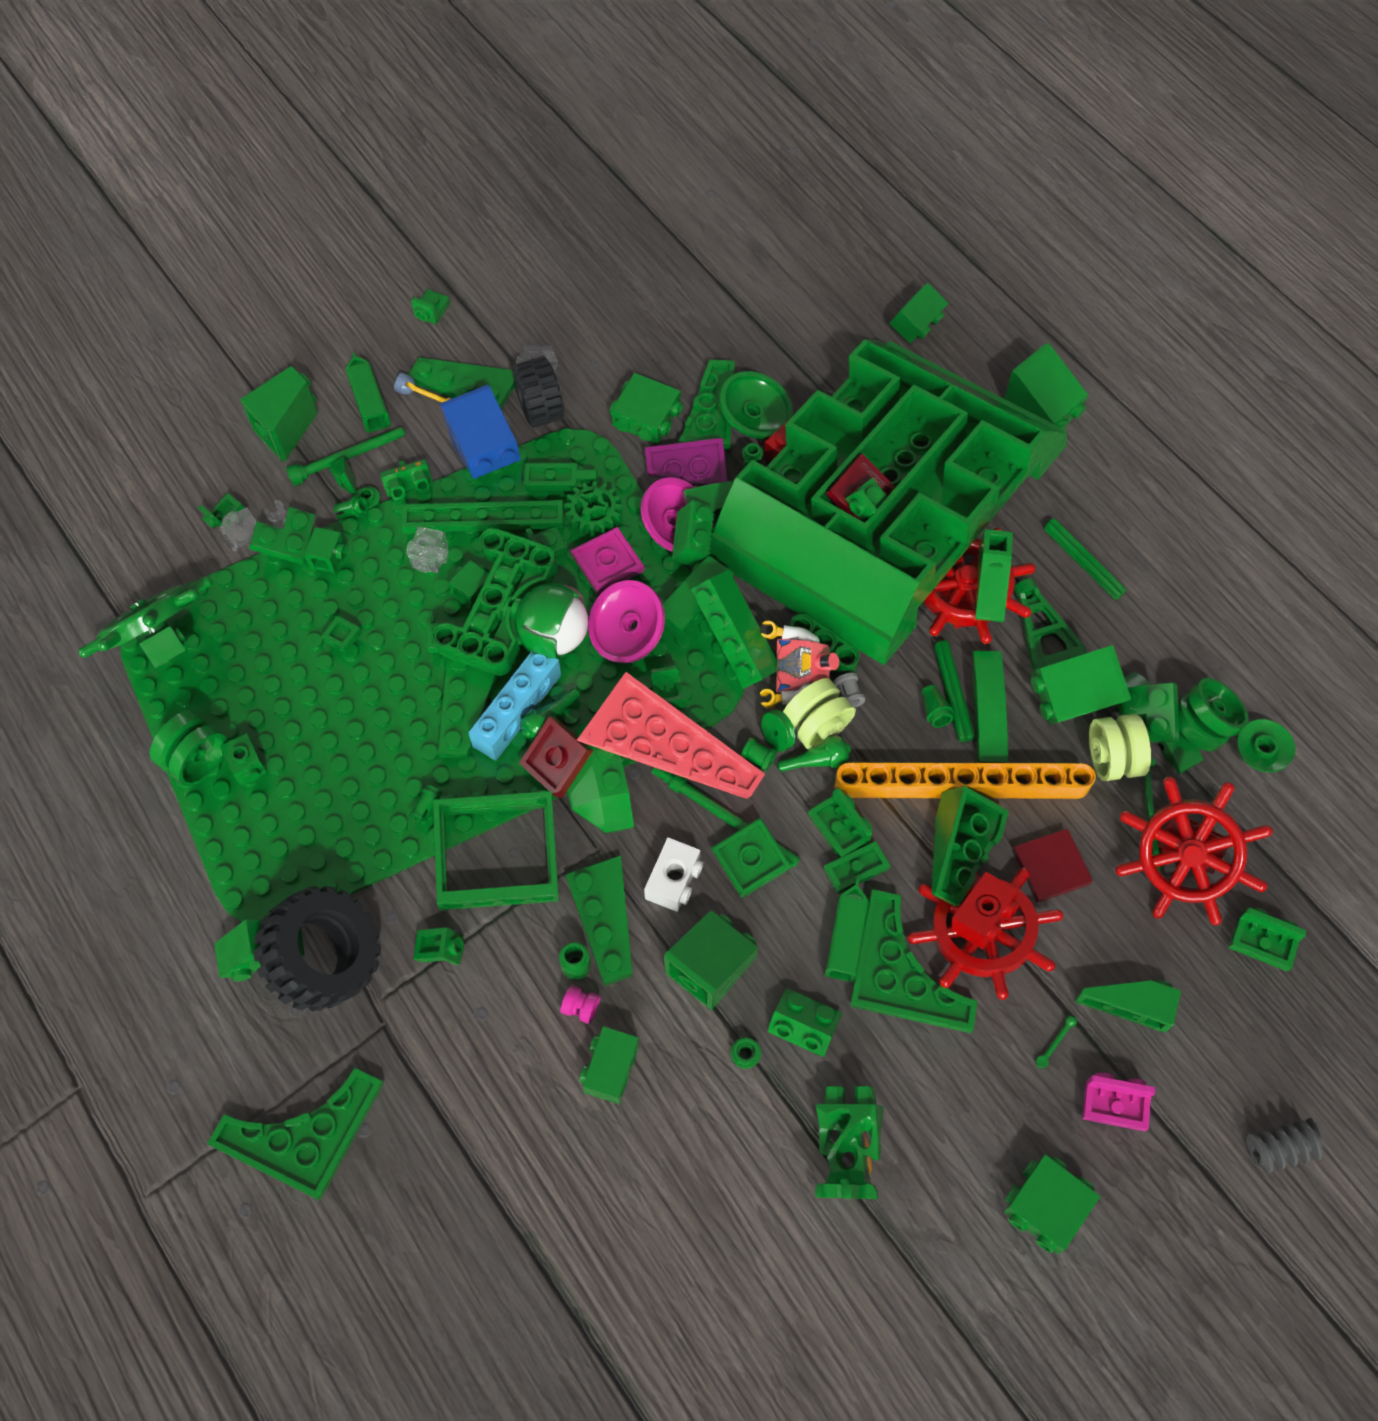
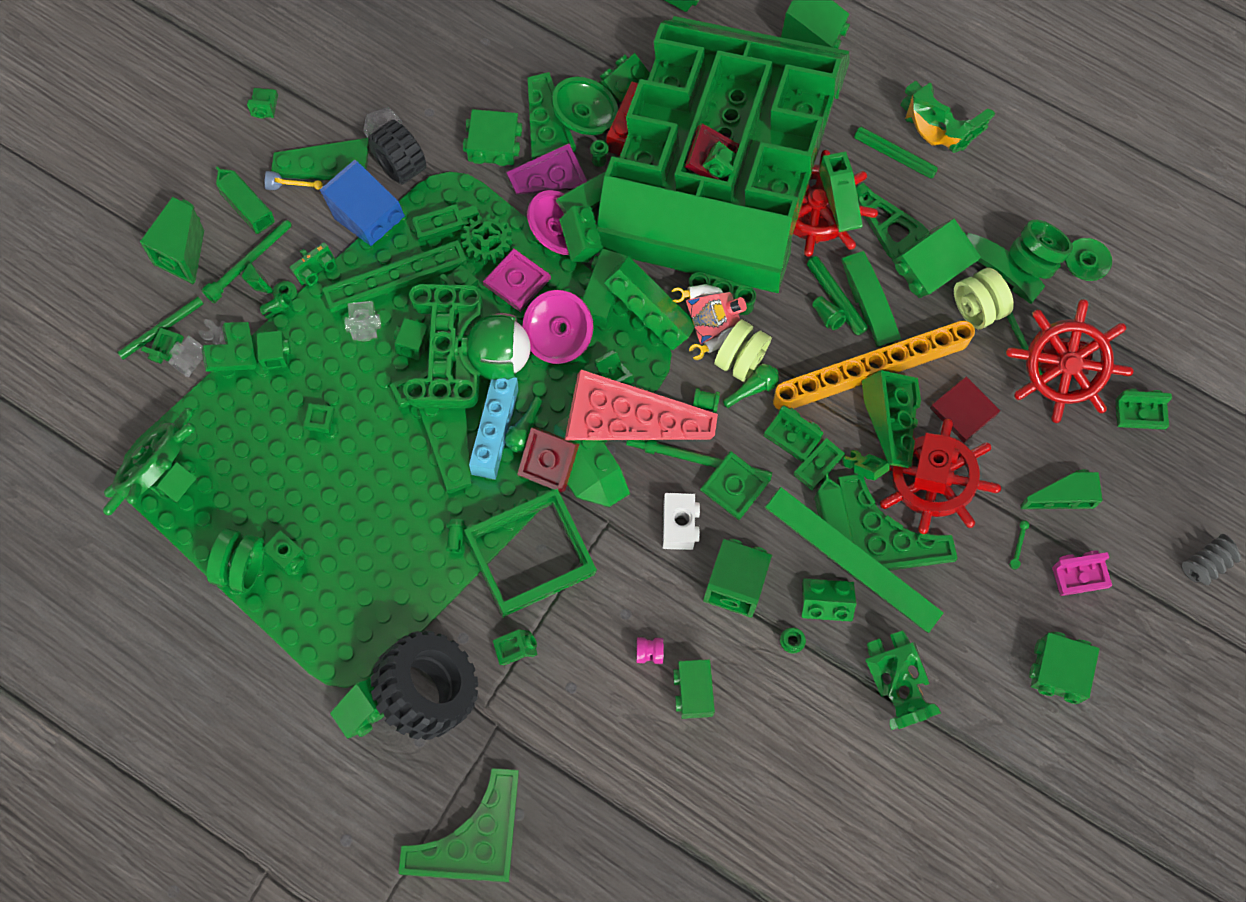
camera: 25 degrees left, 5 degrees up
(234, 492) = (165, 324): none -> green bar
(575, 952) = (632, 610): green brick -> none
(603, 913) = (635, 572): green wing -> none
(777, 730) = (714, 375): green piece -> none
(802, 389) = (618, 80): none -> green bracket
(849, 689) = (757, 321): light grey bush -> none
(850, 988) = (854, 560): none -> green tile
(909, 889) = (868, 466): none -> green plate
(1141, 539) = (930, 114): none -> green hips
(1160, 706) = (1003, 255): green plate -> none

